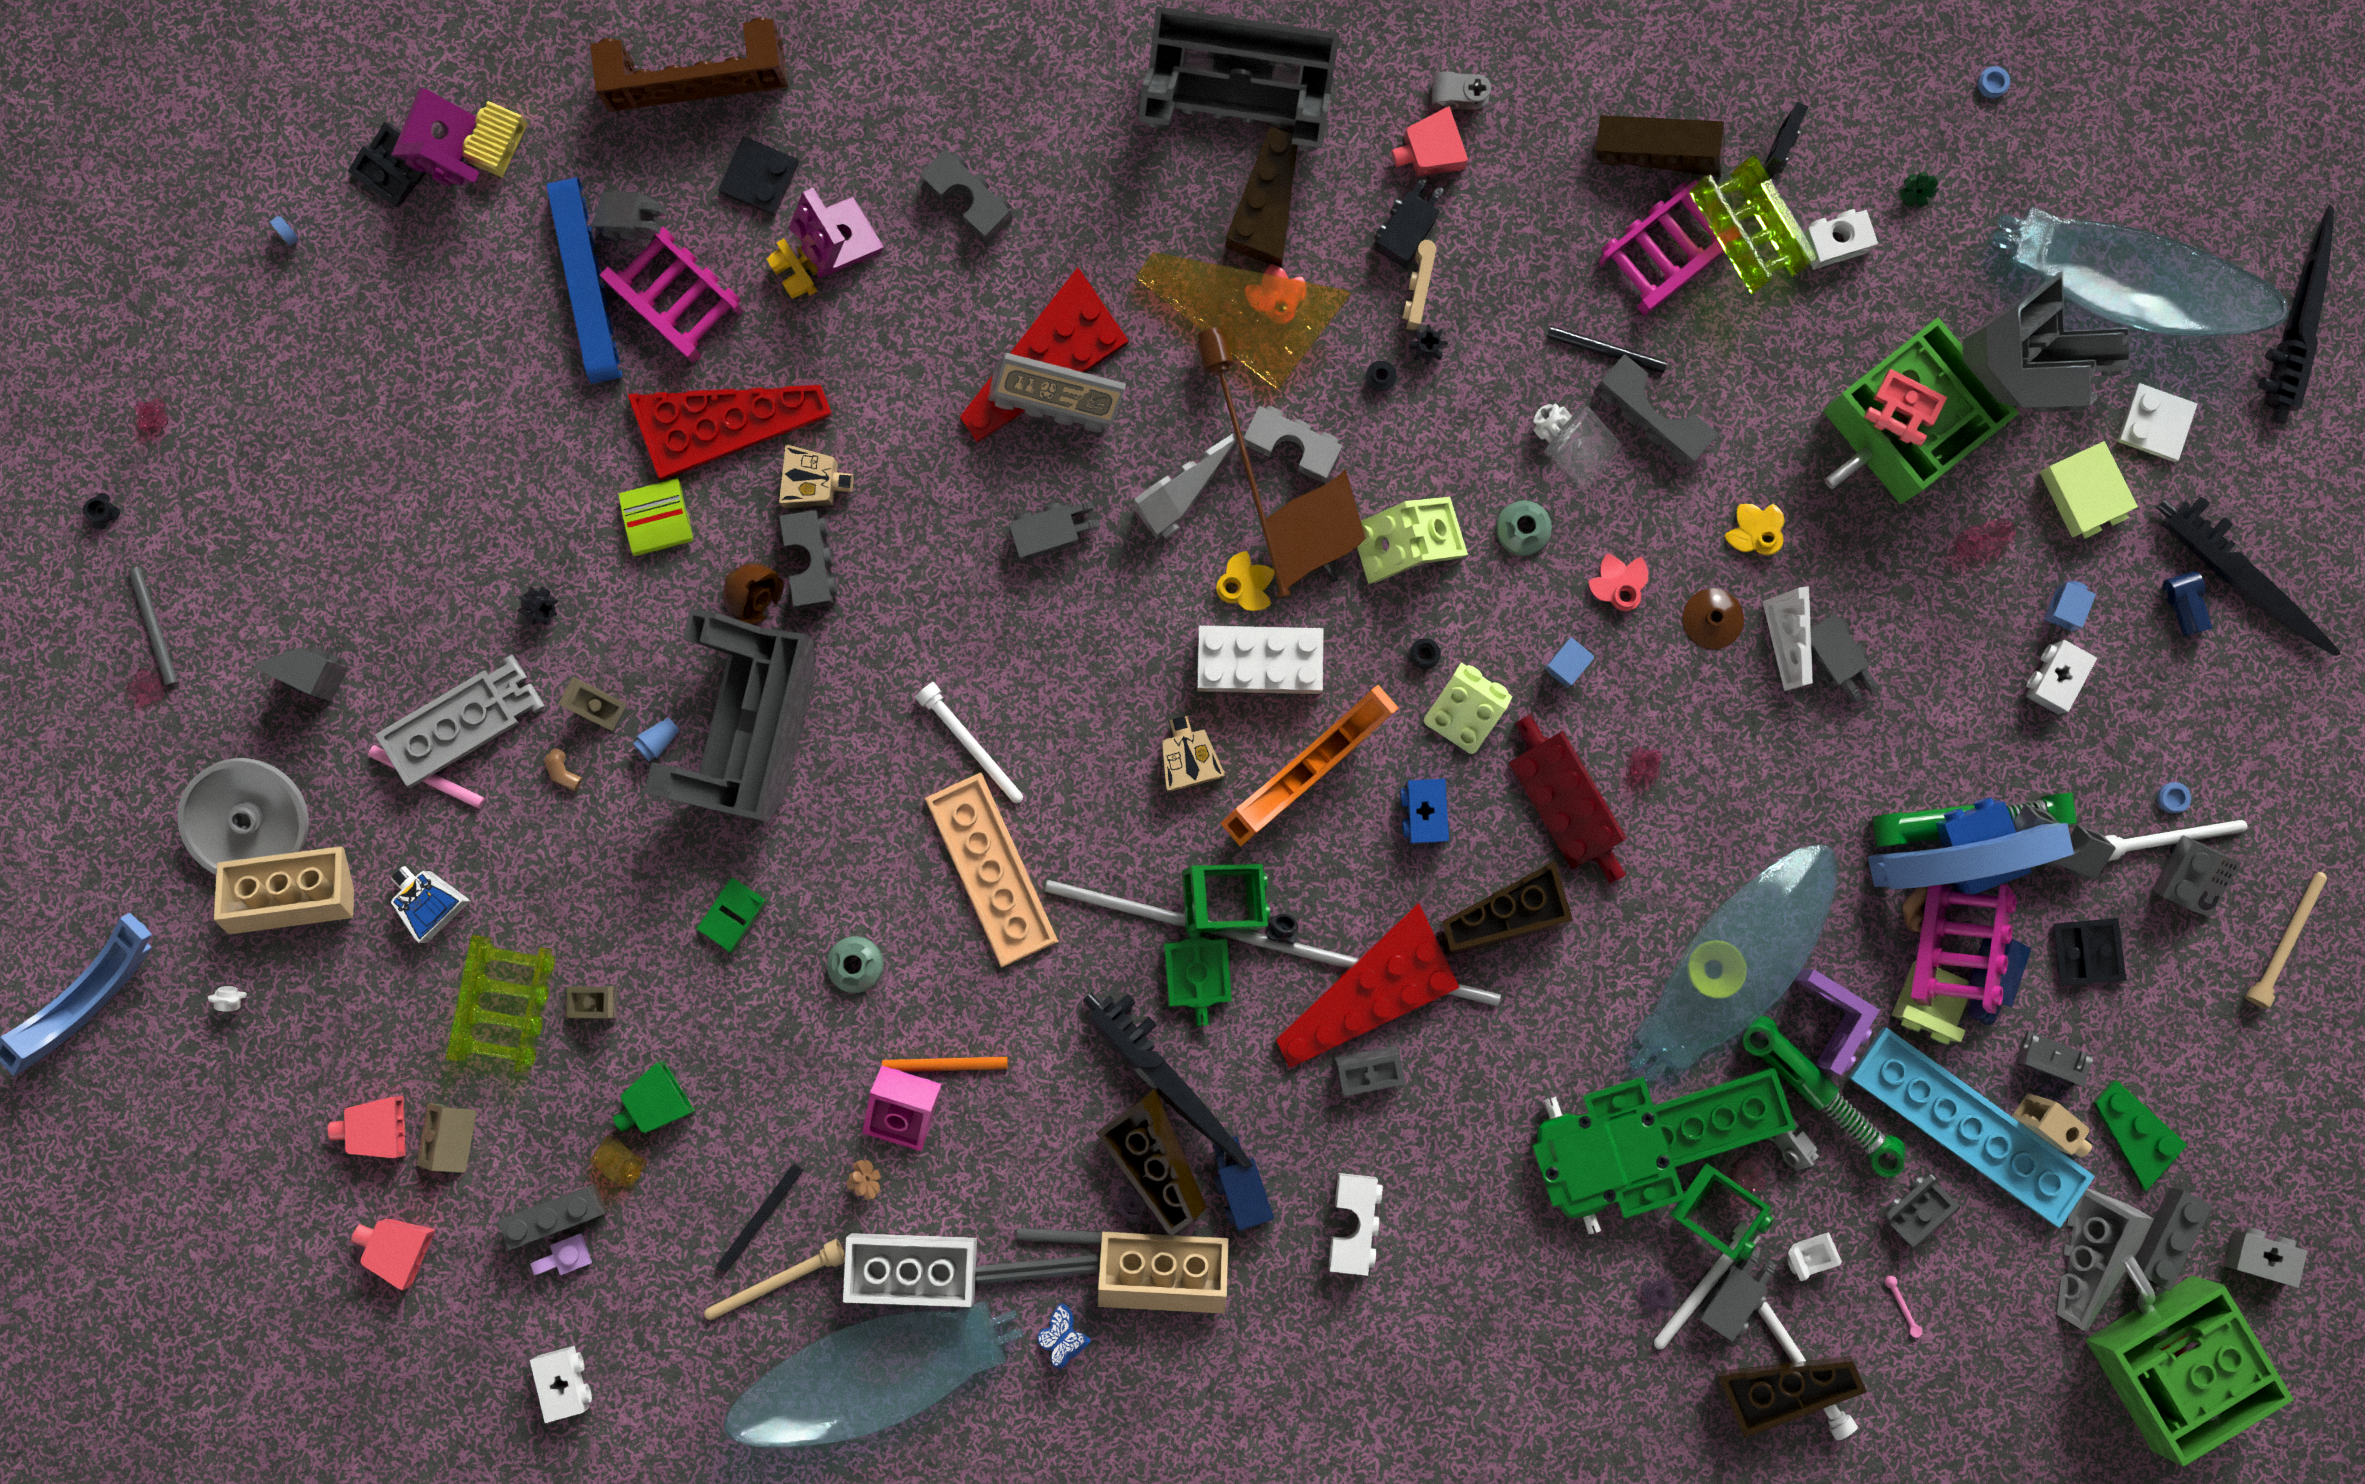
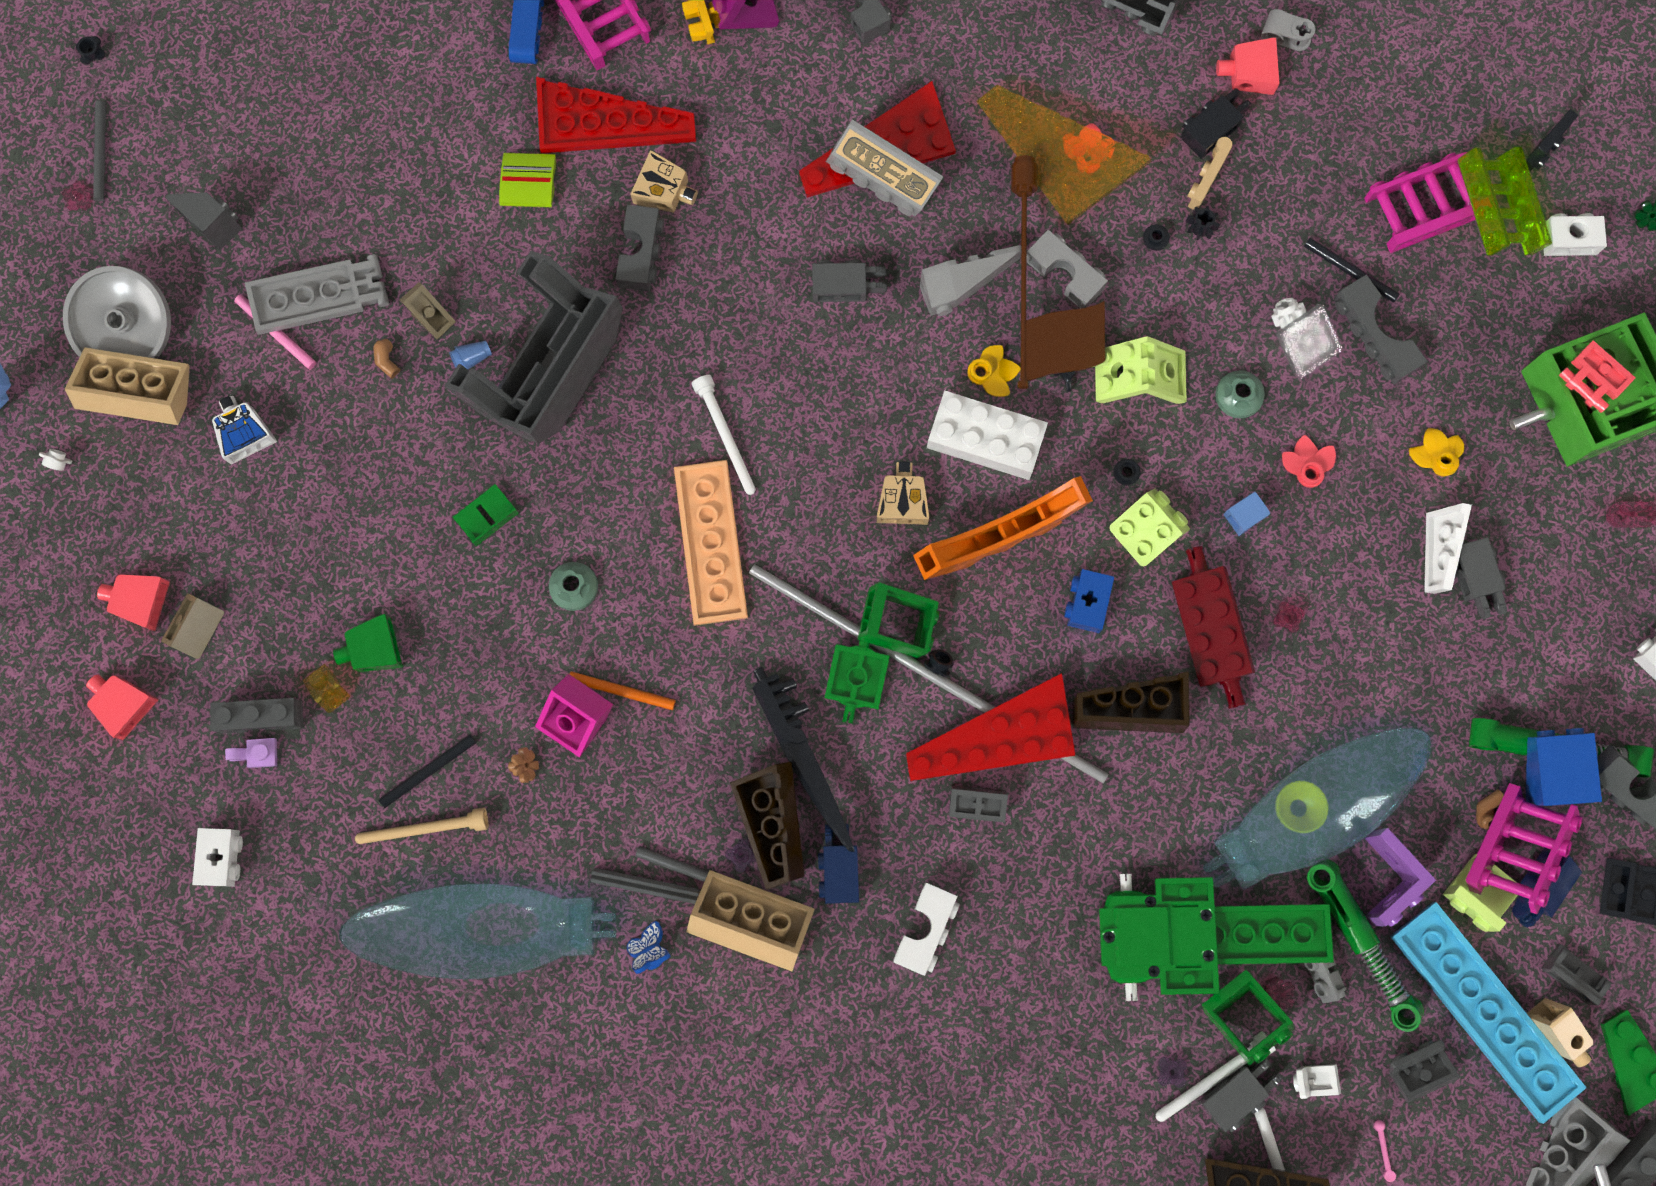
camera: 20 degrees right, 5 degrees down
(469, 1012) = (259, 506): clear neon green fence -> none
(537, 605) = (404, 215): black gear -> none
(592, 1002) = (348, 550): dark tan slope -> none
(750, 591) = (586, 258): reddish brown cylinder -> none
(910, 1270) = (537, 851): white brick -> none
(1263, 210) = (1098, 76): dark brown wedge -> none
(1662, 143) = (1446, 116): dark brown wedge -> none
(1699, 623) = (1369, 521): reddish brown dish -> none
(1972, 860) = (1552, 774): medium blue arch -> none

